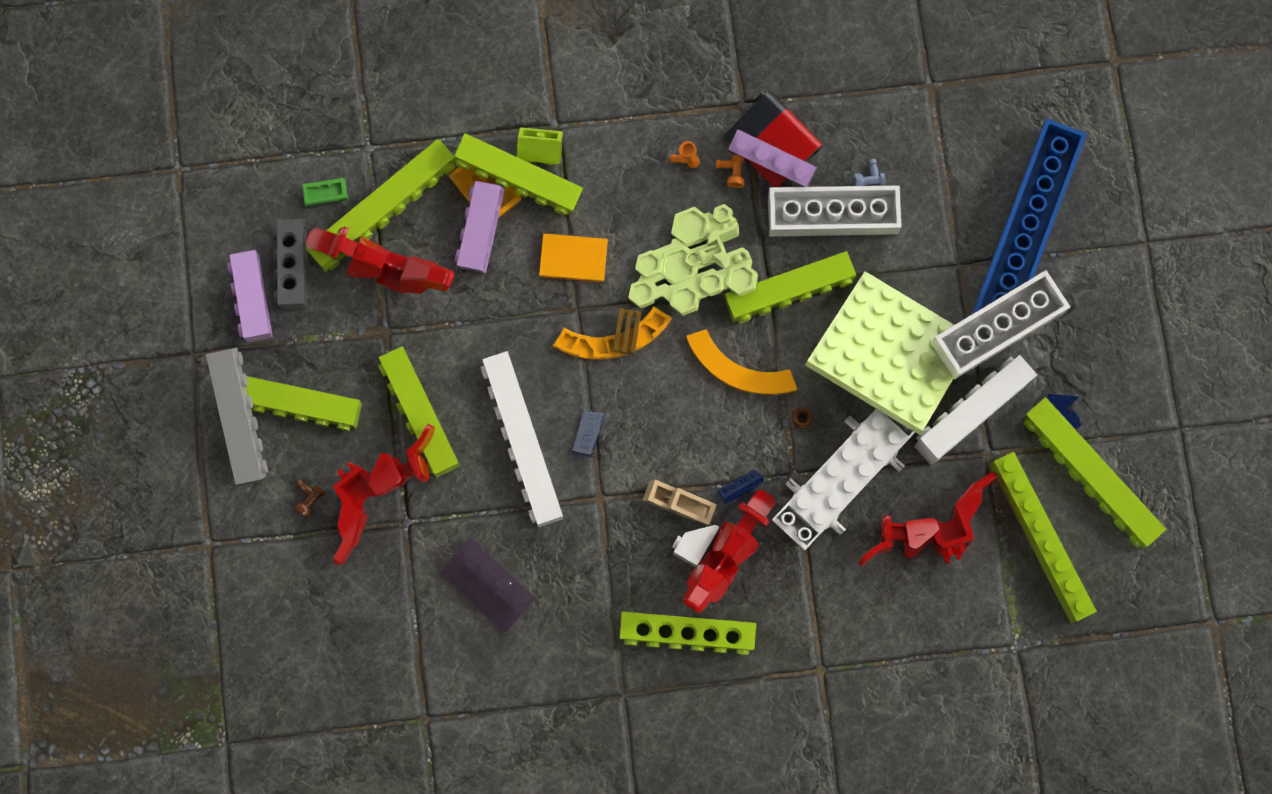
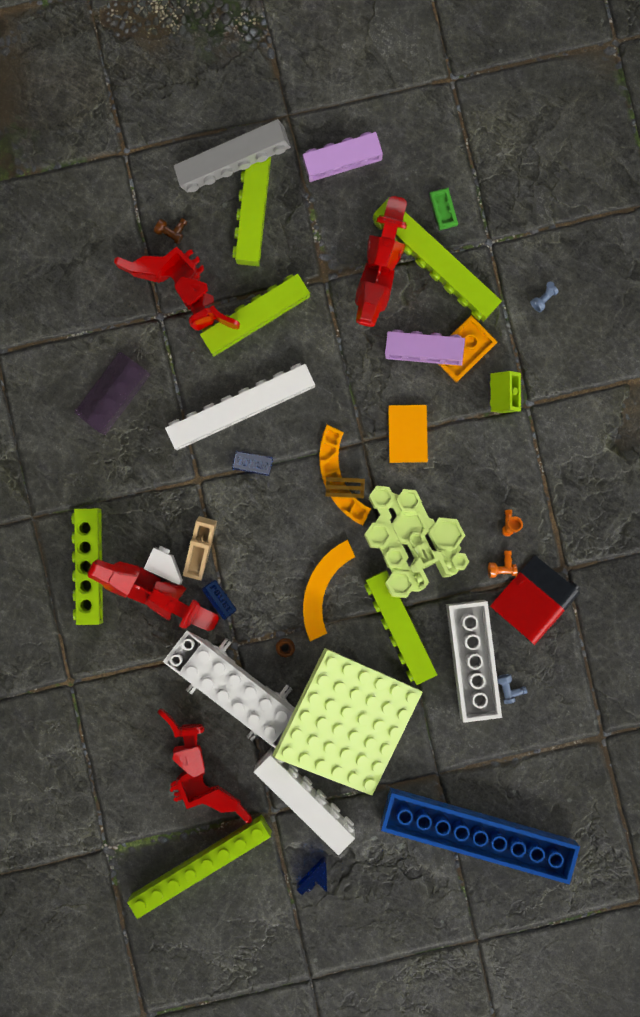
camera: 85 degrees right, 10 degrees up
(297, 296) = (348, 198): dark grey brick -> none
(444, 101) = (538, 303): none -> sand blue piece
(517, 174) = (476, 374): lime brick -> none
(772, 158) = (515, 601): lavender brick -> none
(1000, 324) = (380, 820): white brick -> none
(1094, 474) = (260, 907): lime brick -> none

